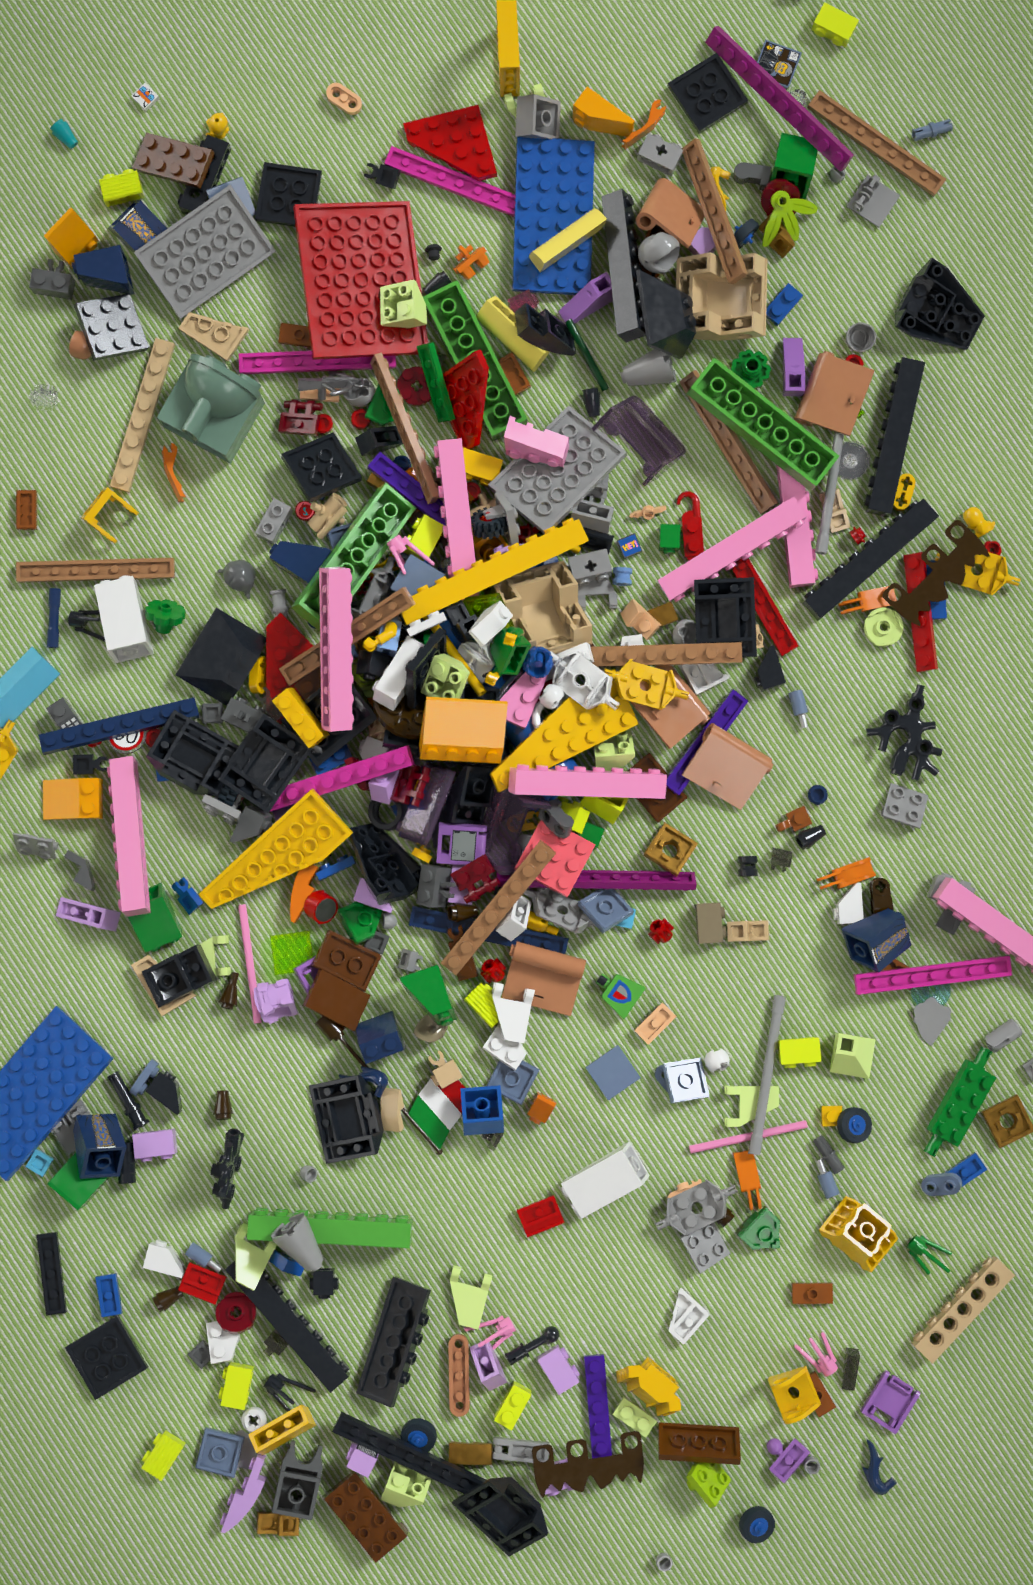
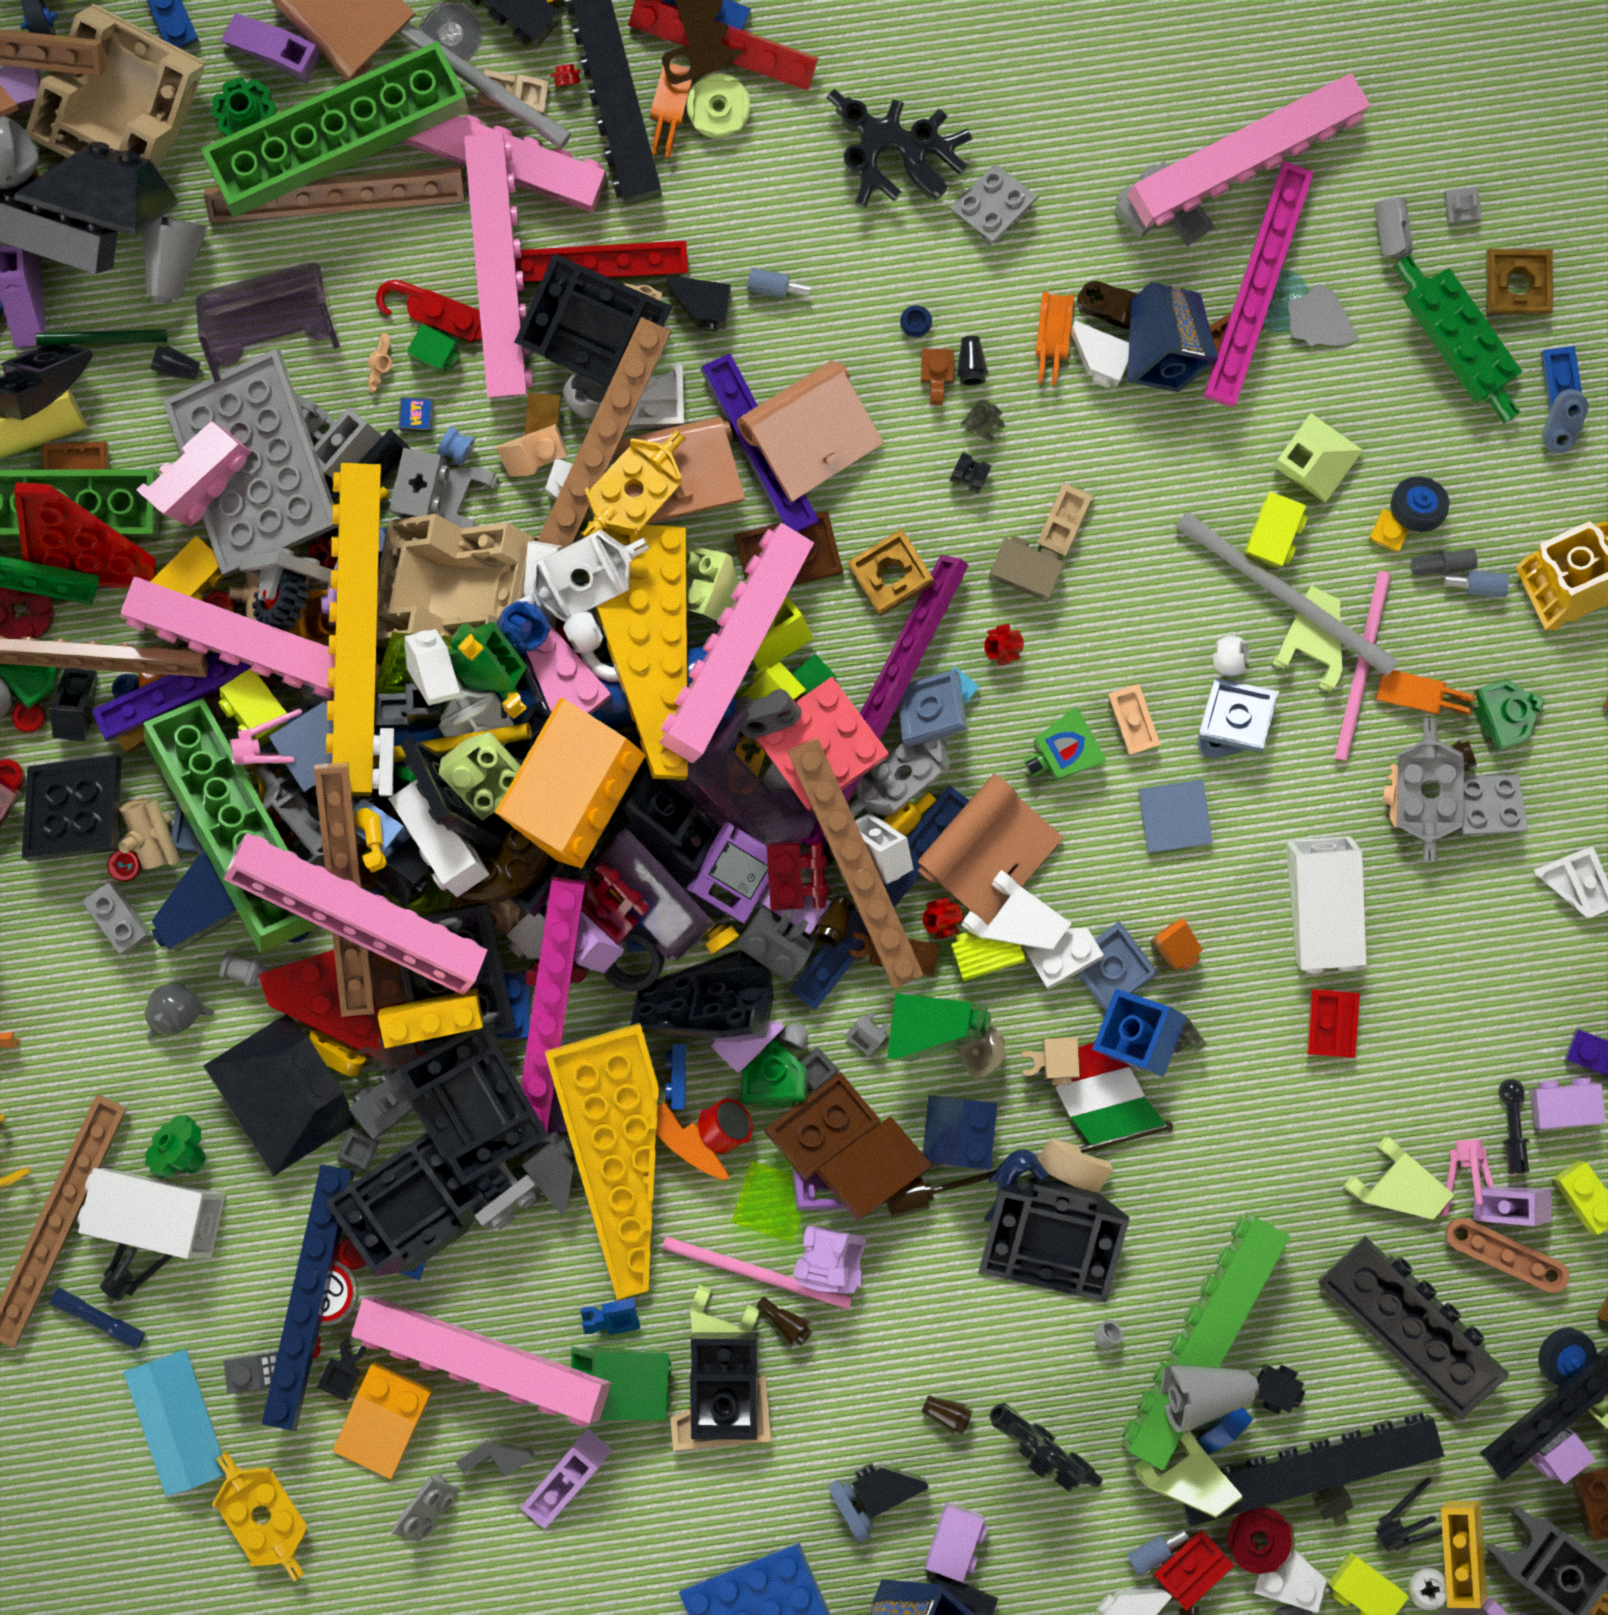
camera: 65 degrees left, 0 degrees up
(132, 1110) = (887, 1551): black pin -> none

